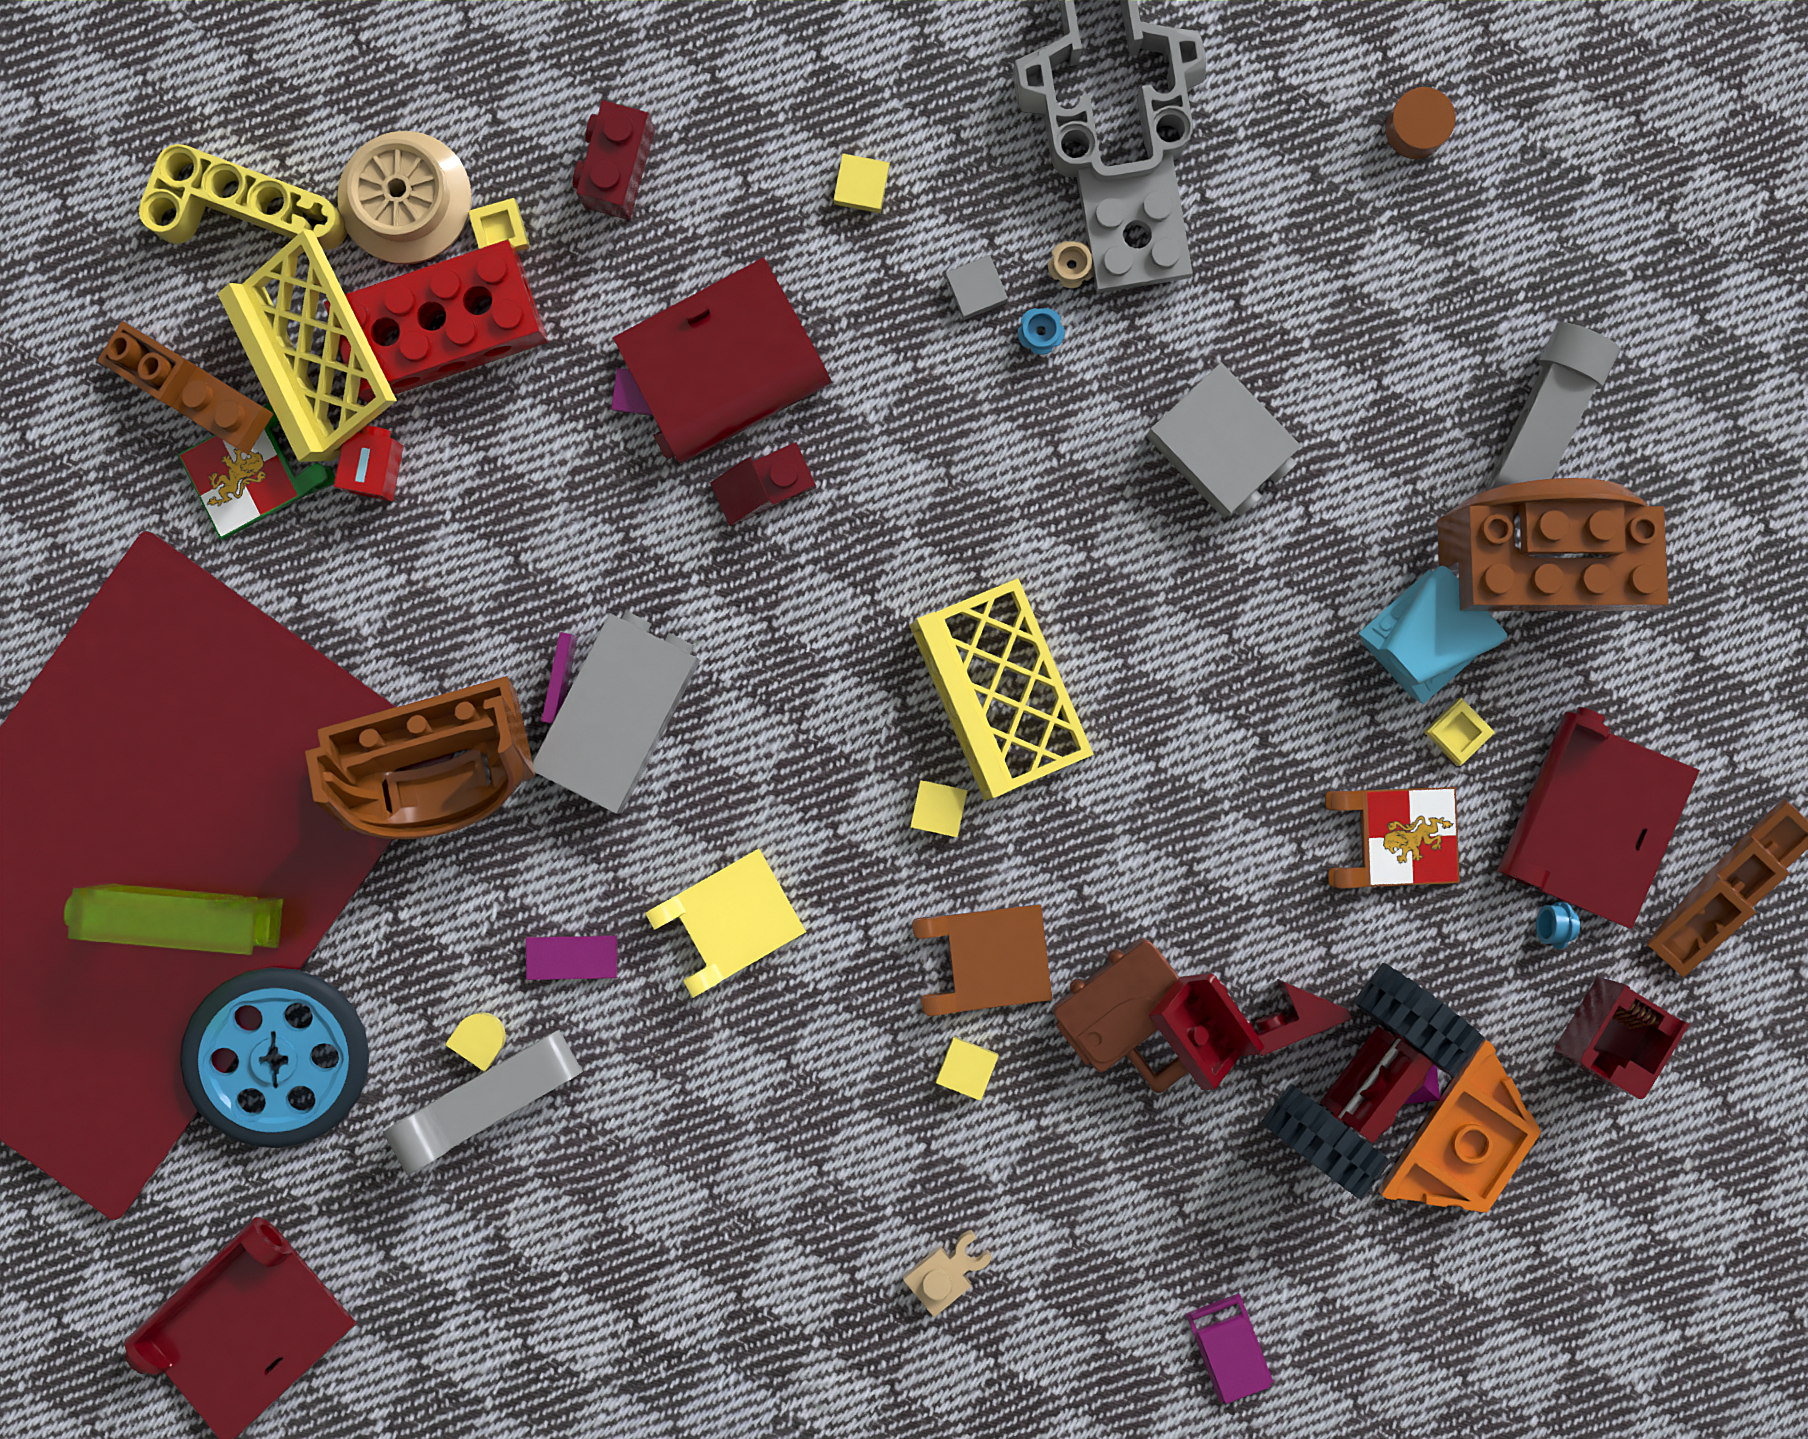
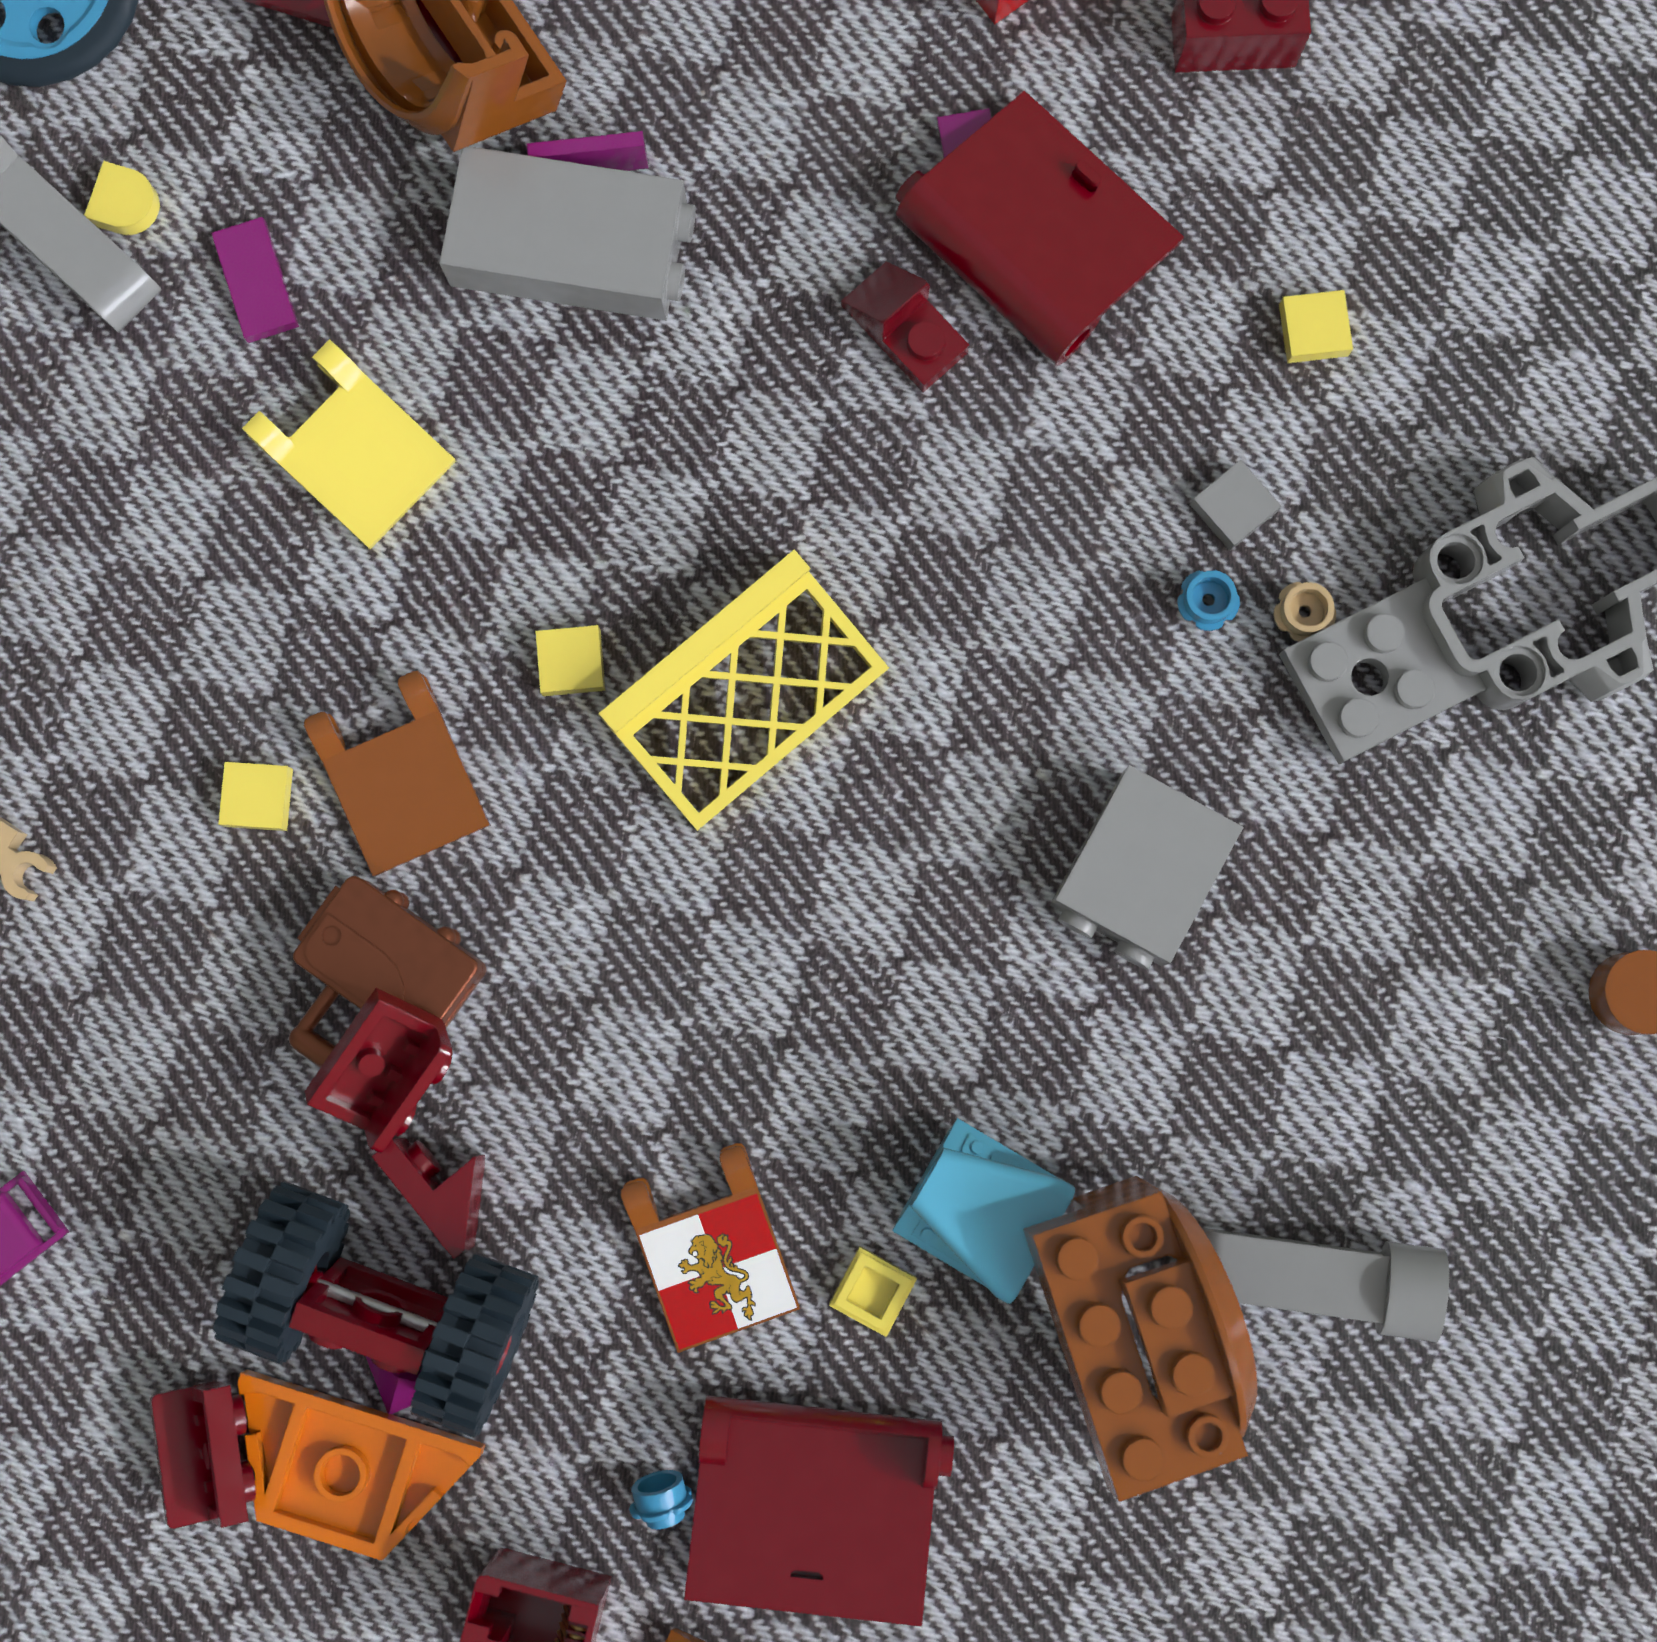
camera: 75 degrees right, 5 degrees down
(1430, 1237) = (201, 1455): none -> dark red bracket

